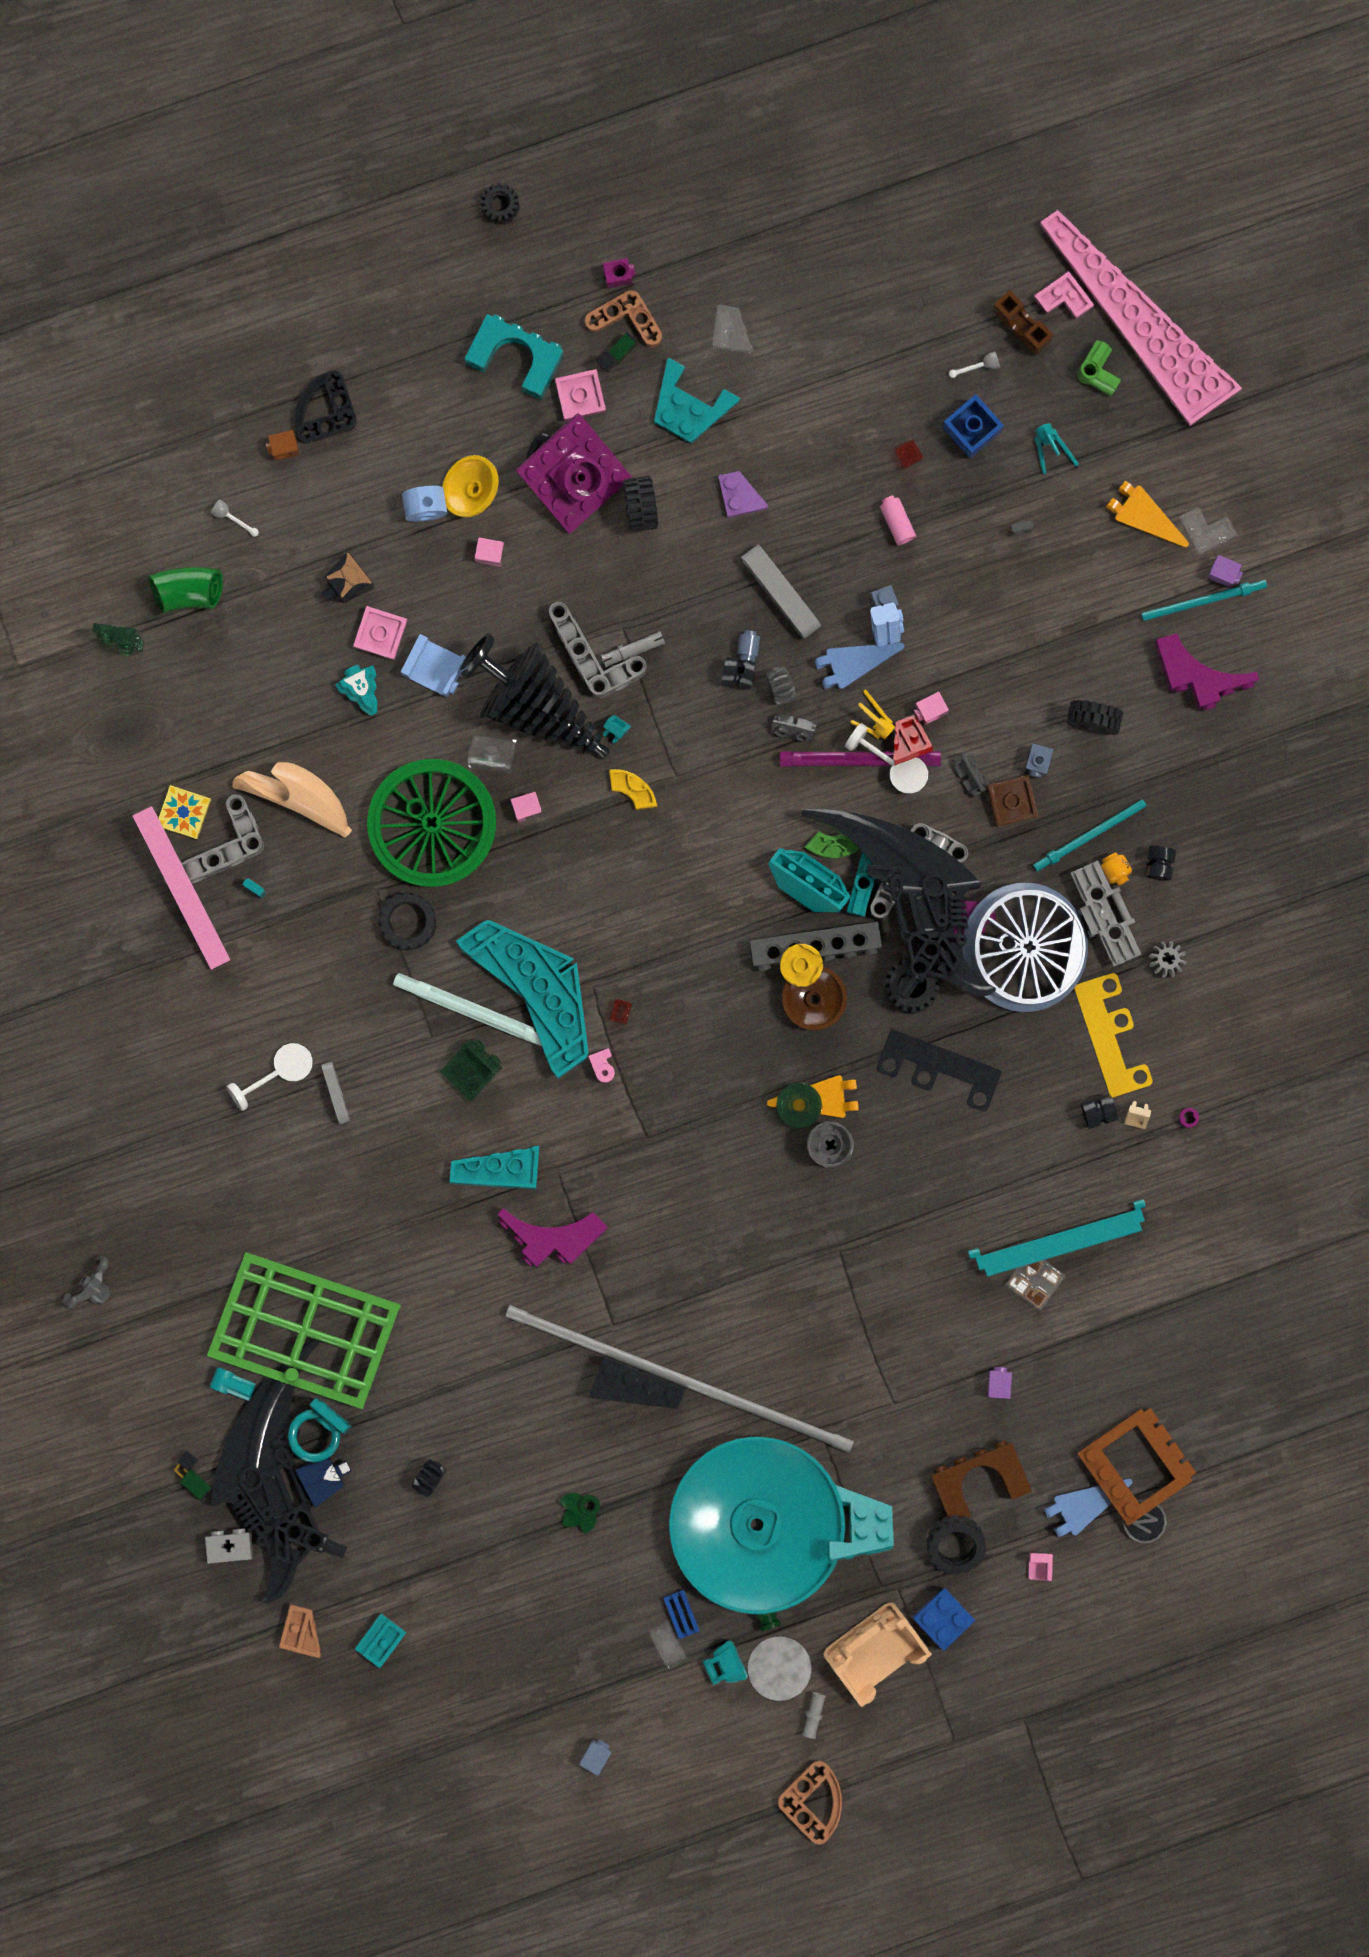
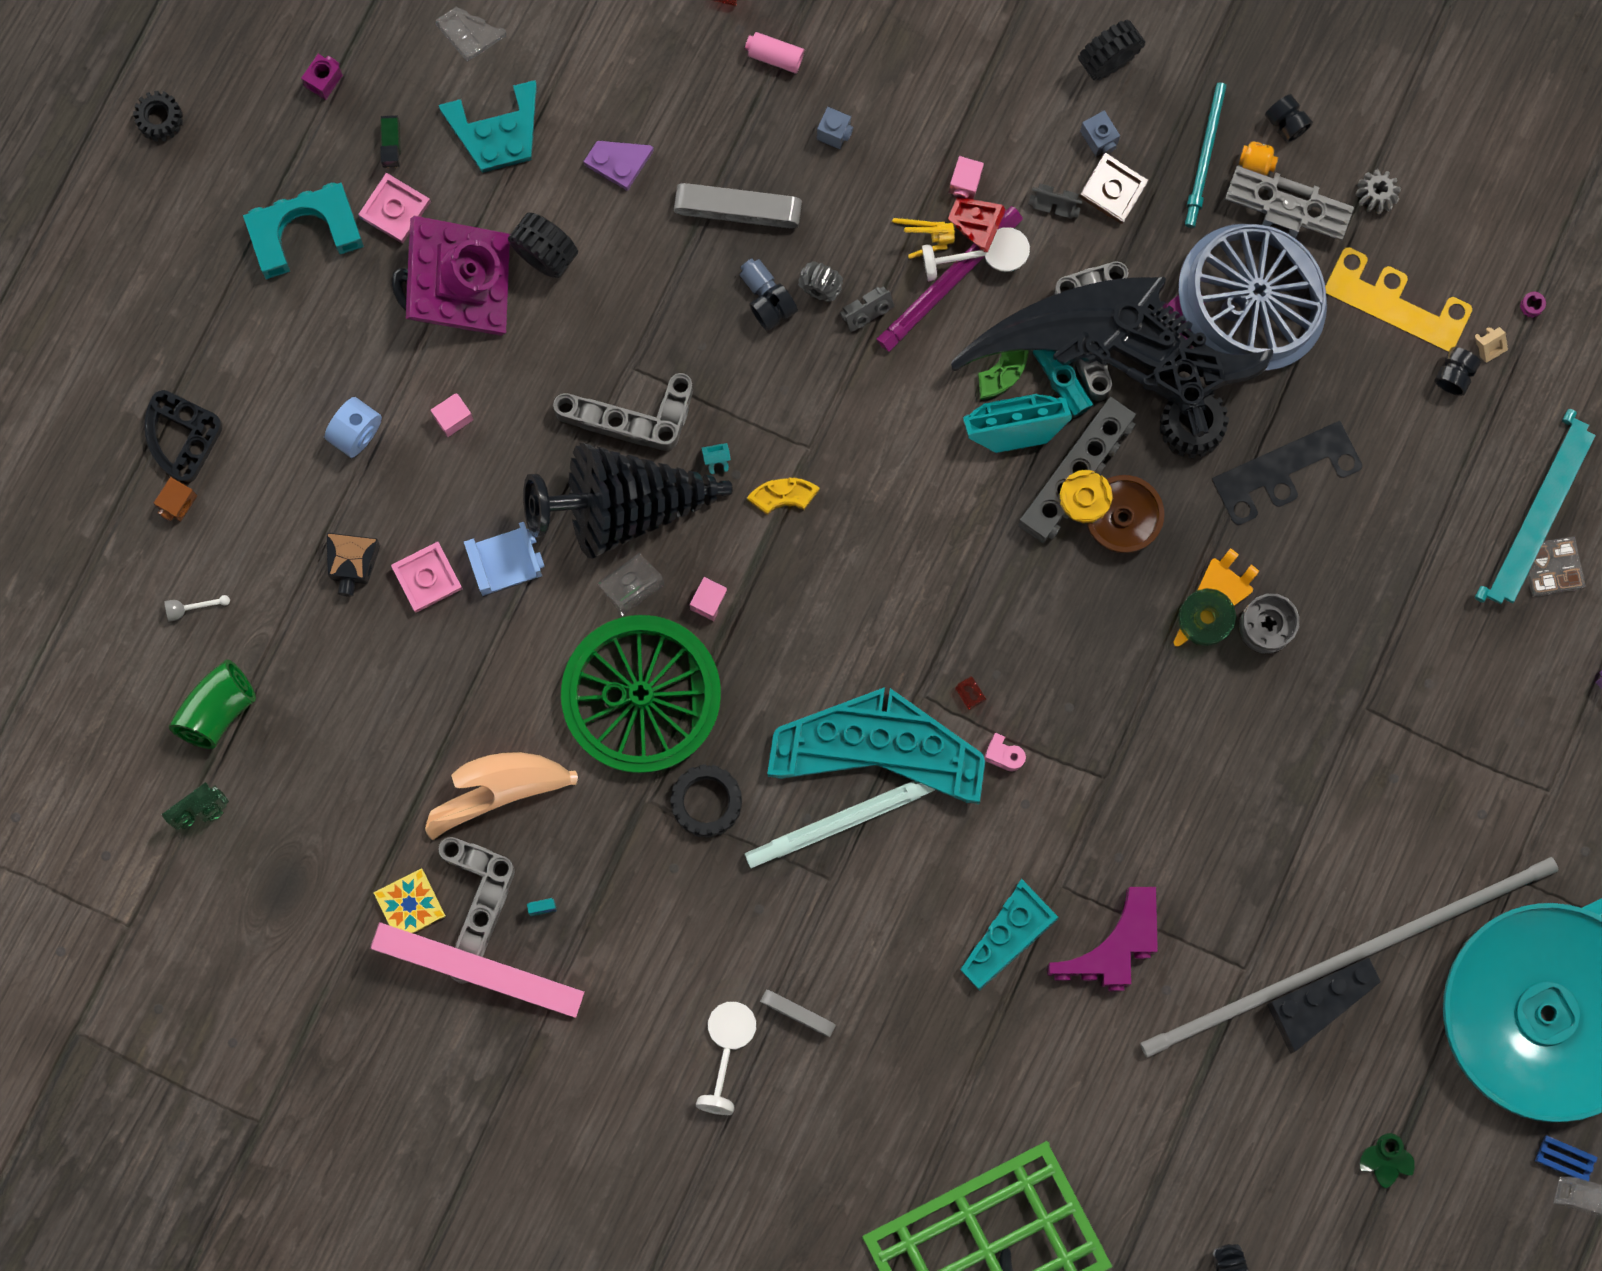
camera: 50 degrees left, 5 degrees down
(360, 688) = (456, 641): teal rock -> none
(464, 480) = (367, 369): yellow dish -> none
(472, 1068) = (895, 871): clear green plate -> none
(632, 312) = (367, 98): nougat beam -> none
(632, 649) = (656, 386): light grey pin -> none
(853, 662) = (860, 204): medium blue flag -> none
(886, 624) = (857, 143): light blue brick -> none

